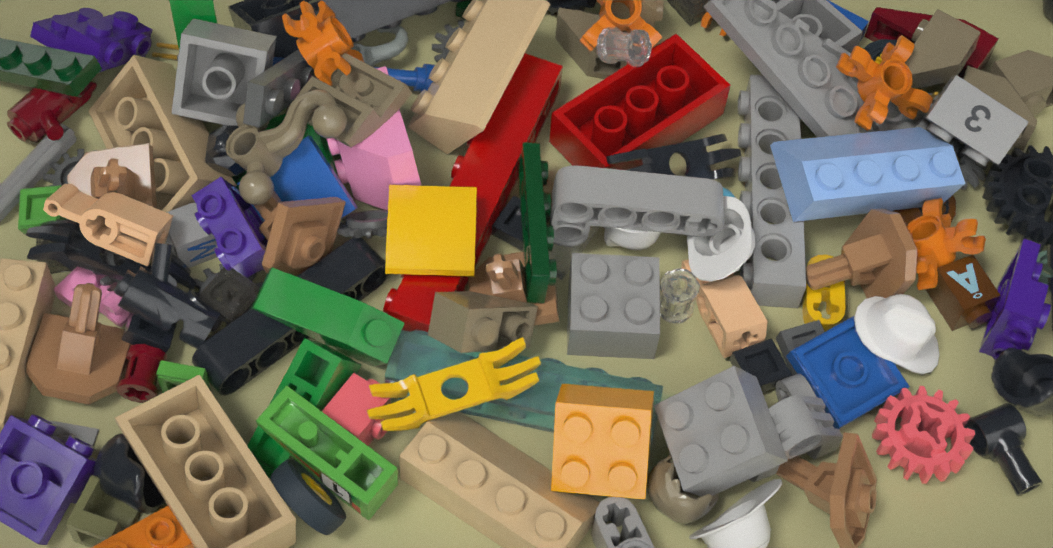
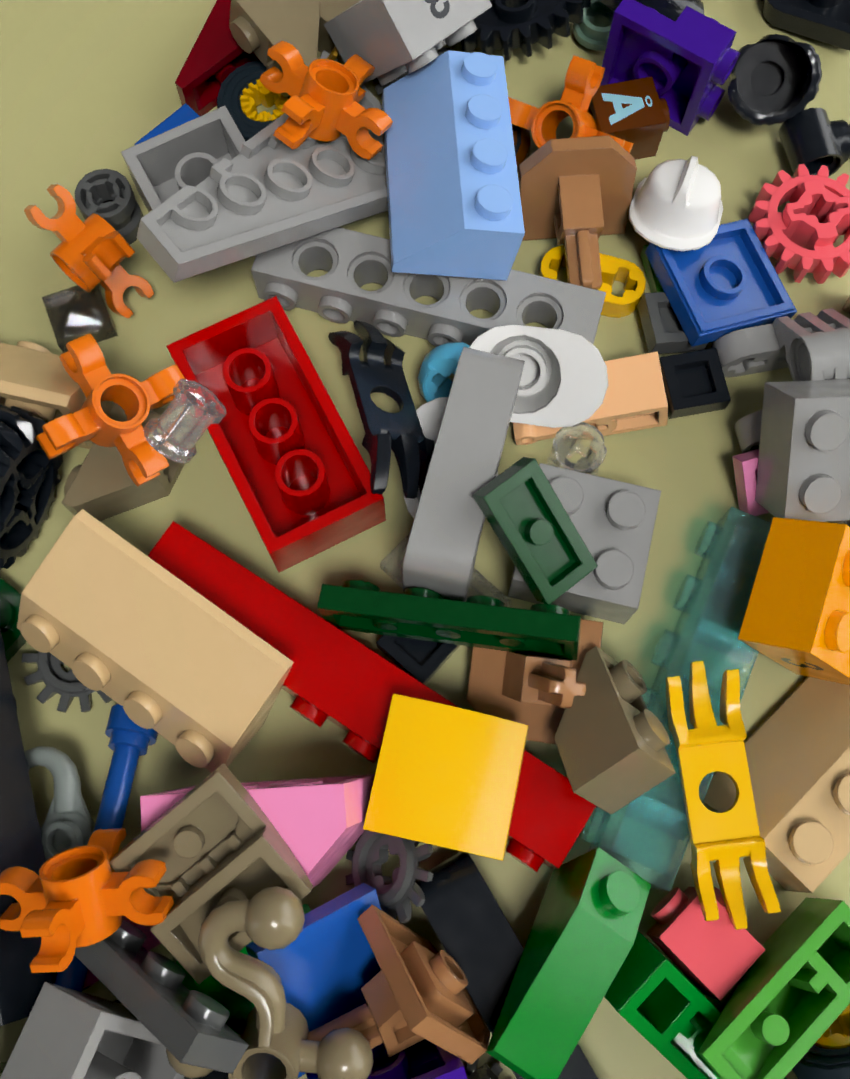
camera: 75 degrees left, 15 degrees up
(600, 239) = (535, 530): none -> dark green plate

